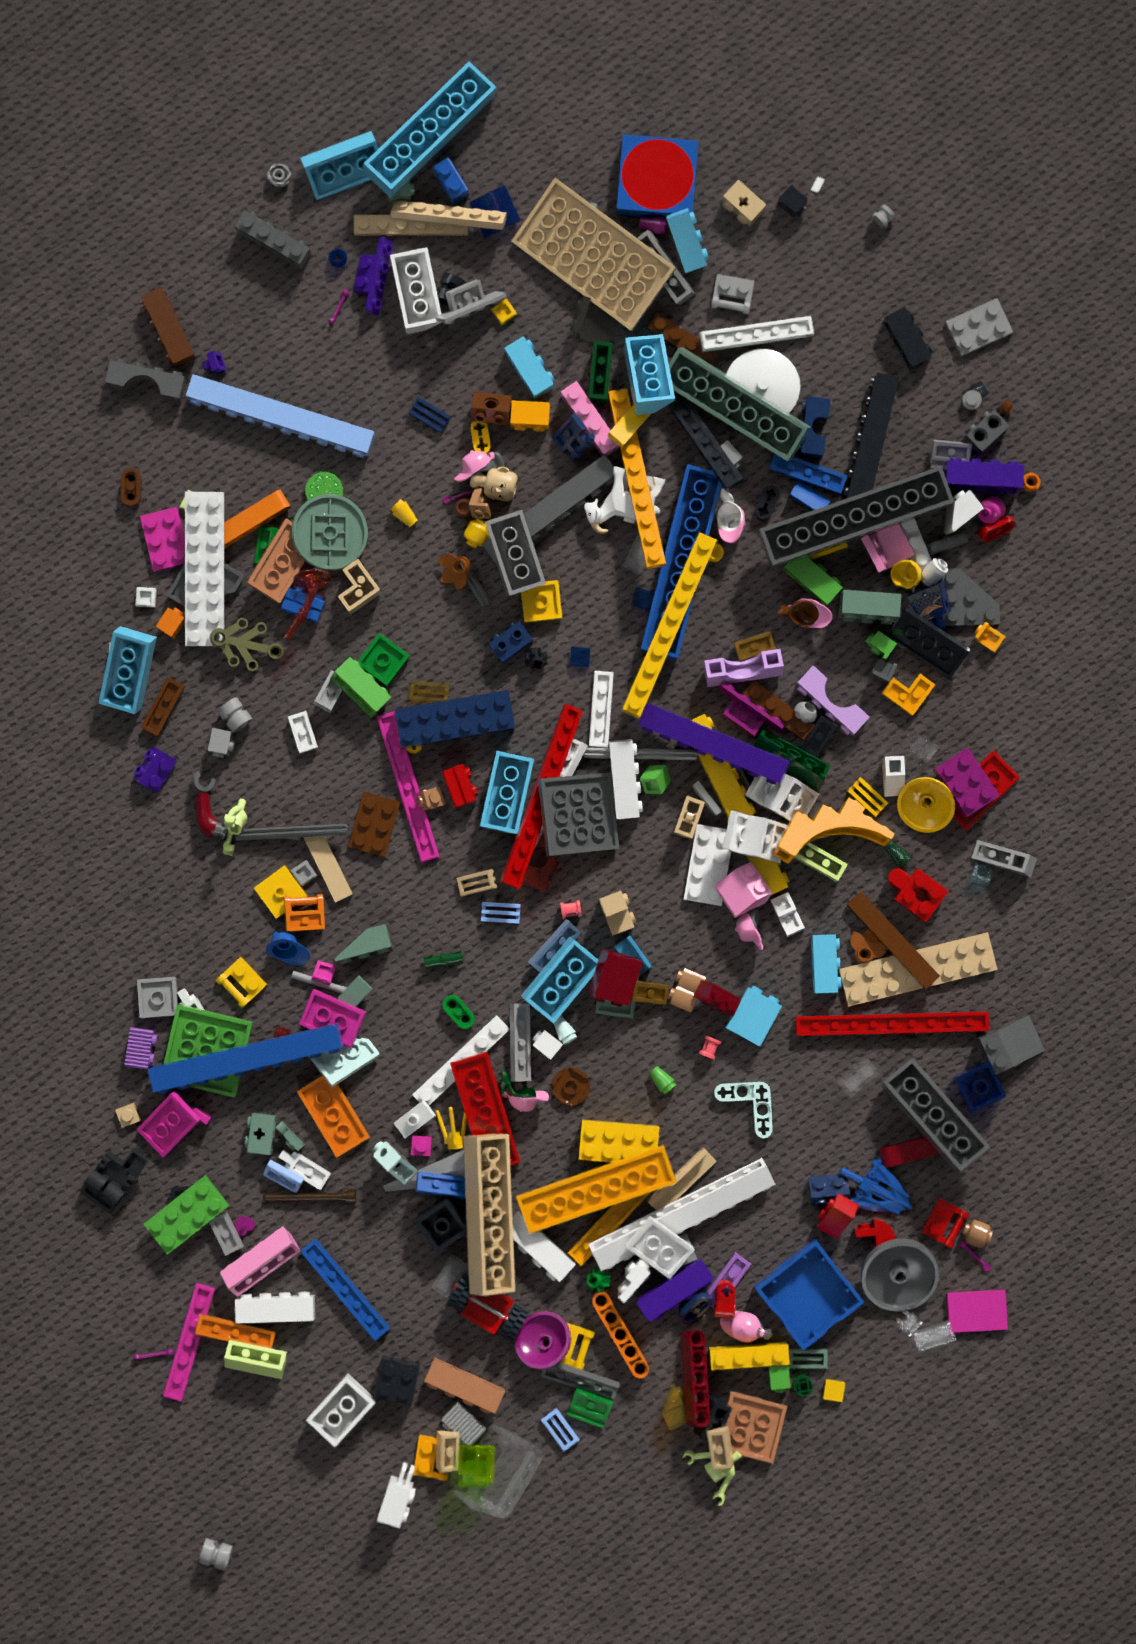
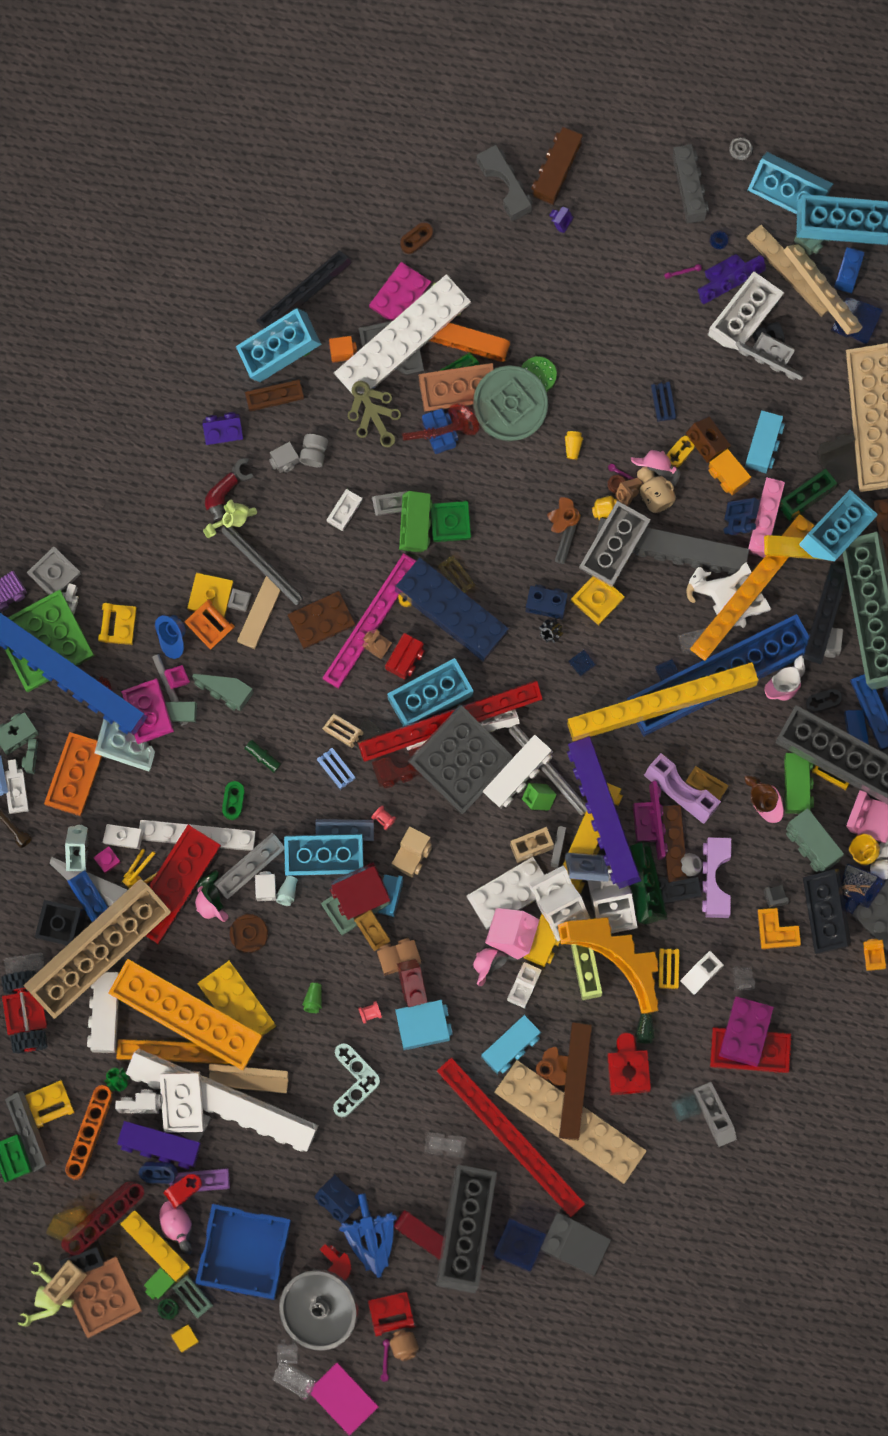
camera: 55 degrees right, 10 degrees down
(98, 611) = (306, 289): none -> black plate
(146, 597) = (345, 316): white tile -> none
(280, 415) = (565, 297): light blue brick -> none
(363, 588) = (487, 462): tan brick -> none
(504, 311) = (789, 389): yellow tile -> none
(534, 1334) = (34, 1068): magenta dish -> none
(601, 709) = (556, 711): white tile -> none
(717, 553) = (750, 695): yellow plate -> none
(745, 793) = (586, 867): none -> sand blue plate
(837, 1215) = (323, 1220): red brick -> none
(880, 644) = (793, 877): bright green brick -> none
(923, 815) = (692, 1012): yellow dish -> none

